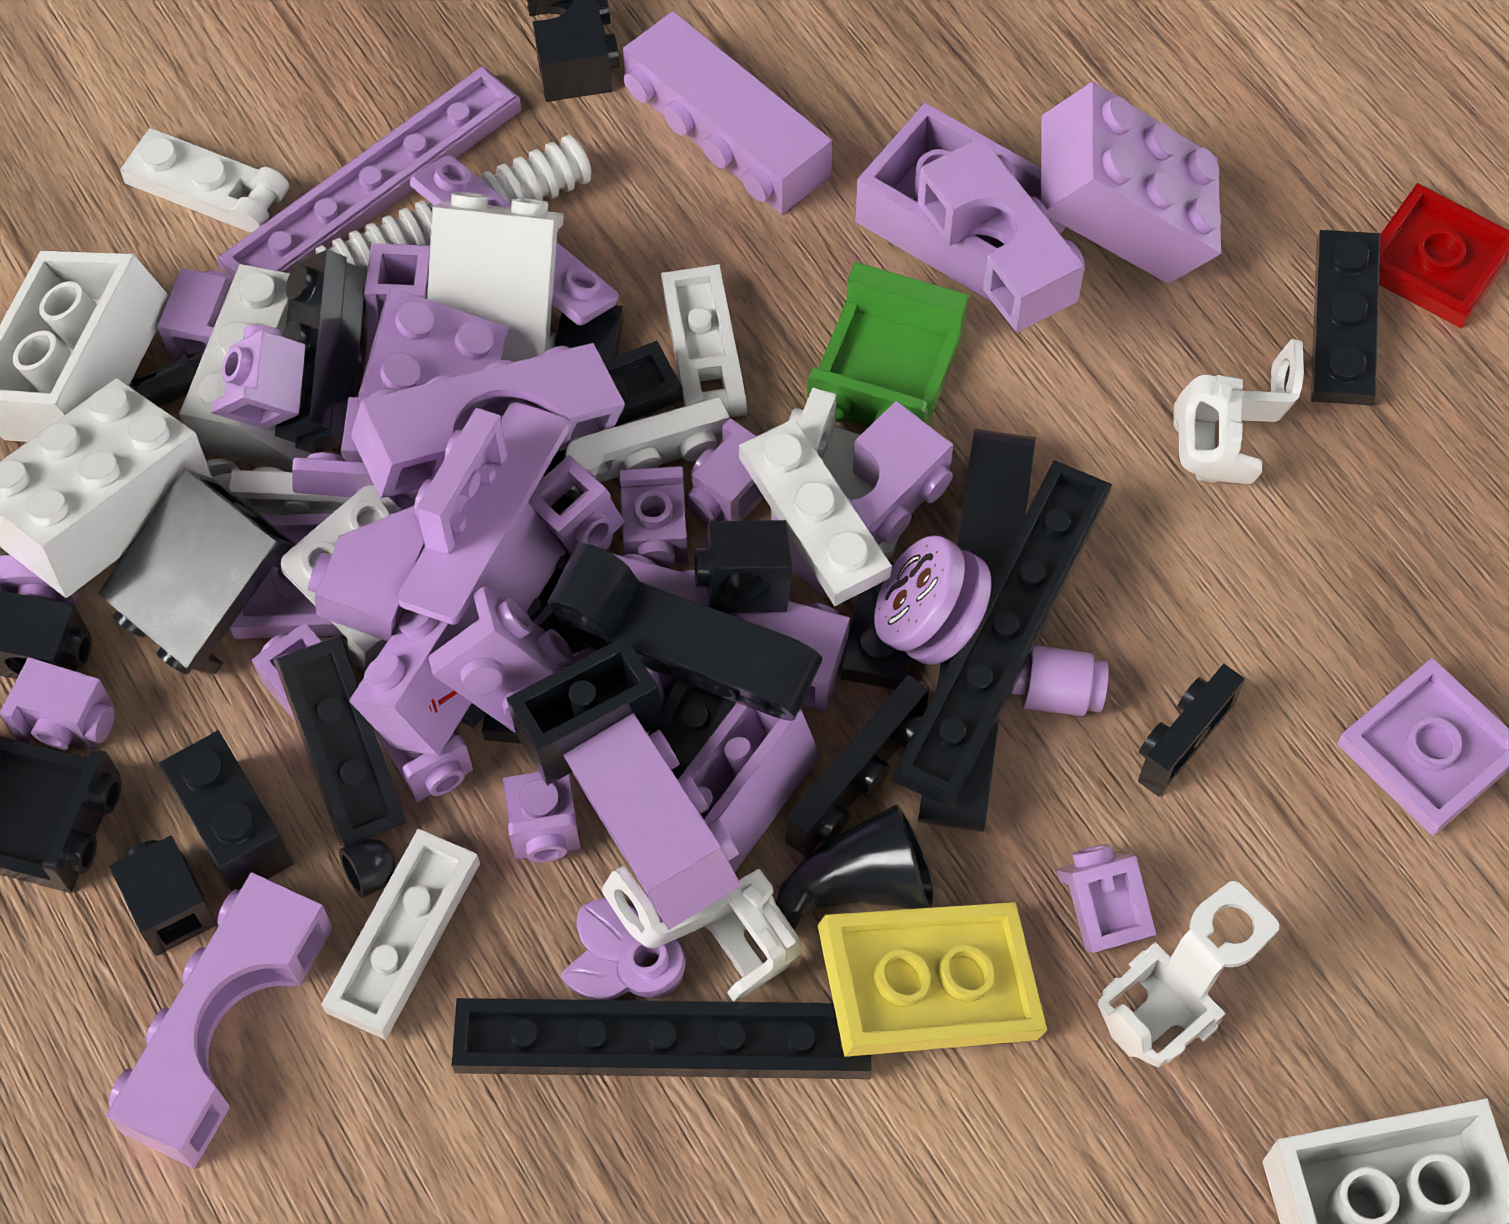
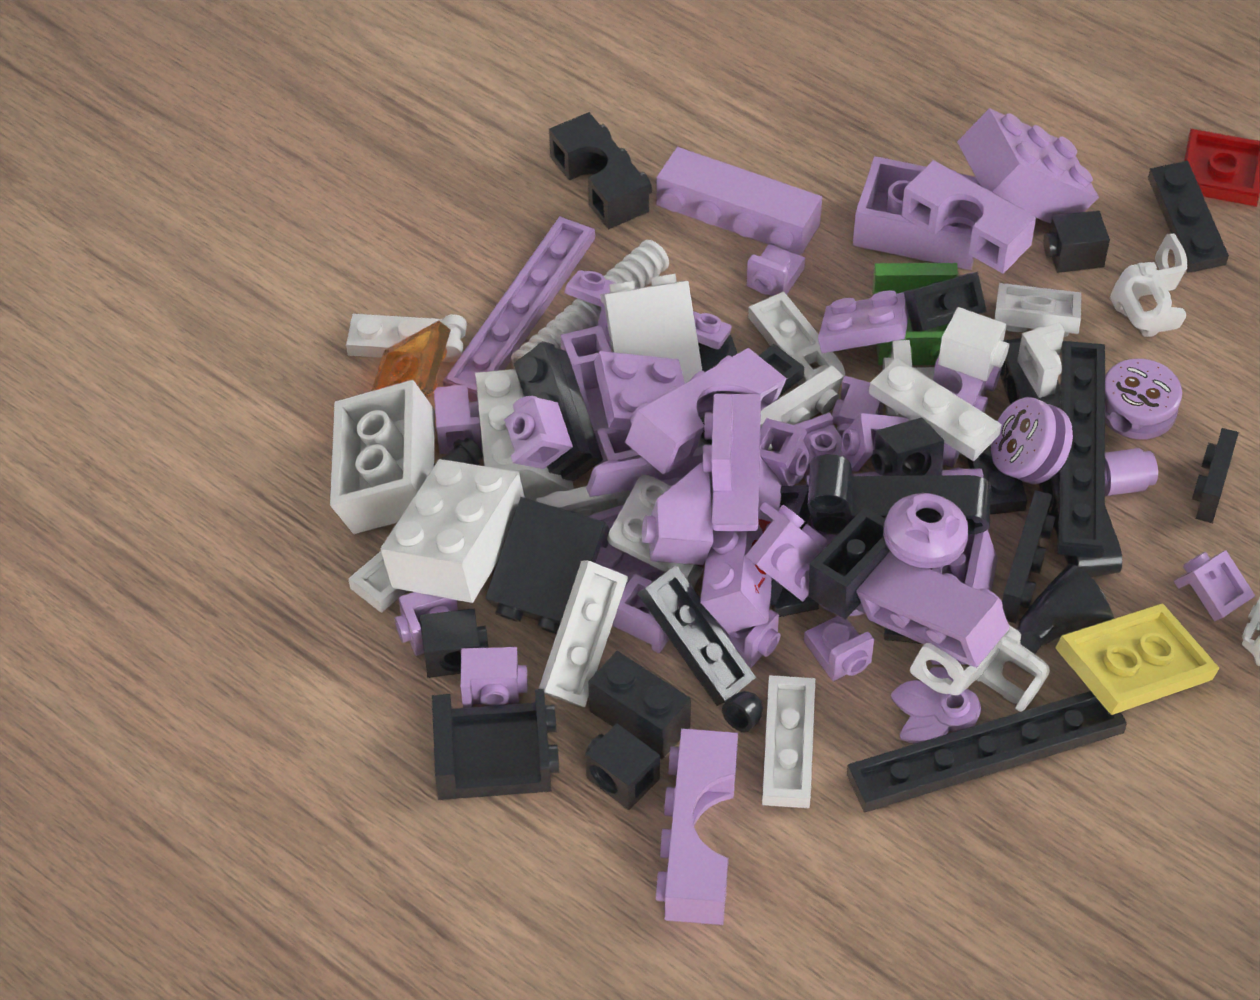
camera: 20 degrees left, 10 degrees down
(175, 224) = (414, 359): none -> clear orange plate
(193, 685) = (583, 633): none -> white plate
(688, 729) = (923, 542): none -> lavender piece
(692, 520) = (859, 438): none -> lavender bracket
(729, 229) = (774, 270): none -> lavender bracket
(798, 345) = (863, 322): none -> lavender plate
(908, 431) = (973, 344): none -> white brick
(923, 348) = (937, 302): none -> black plate
(1006, 467) = (1040, 357): none -> white bracket
(1054, 397) = (1037, 307): none -> white plate
(1139, 576) = (1141, 398): none -> lavender head
(1164, 309) = (1077, 241): none -> black brick

